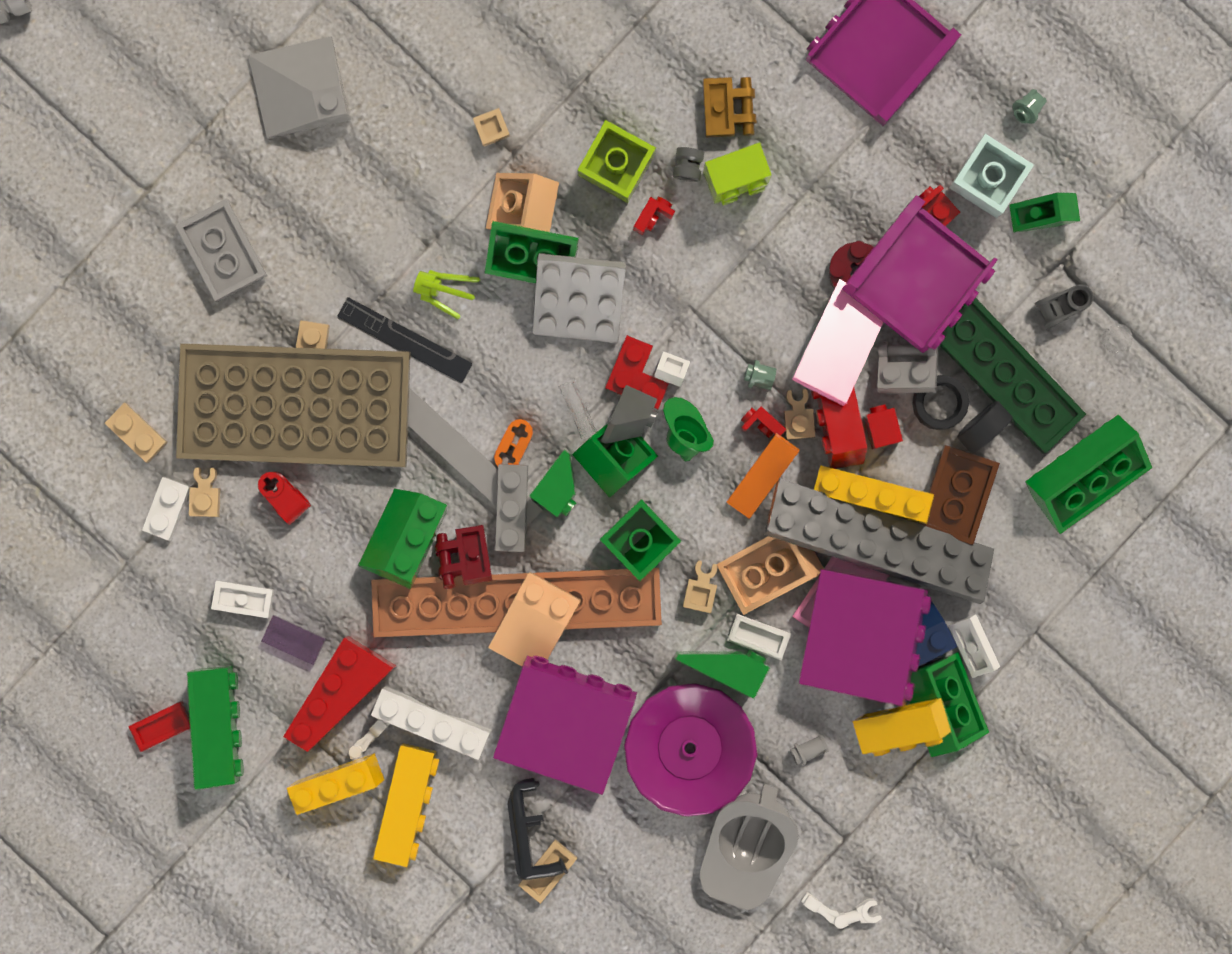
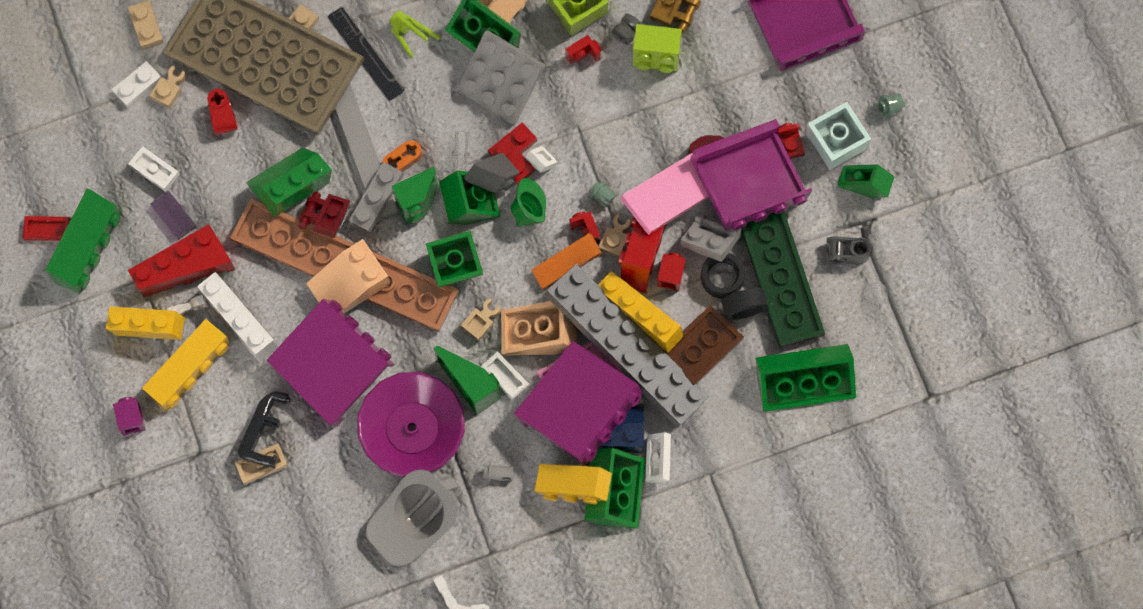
camera: 25 degrees right, 15 degrees down
(374, 892) = (129, 416): none -> magenta brick

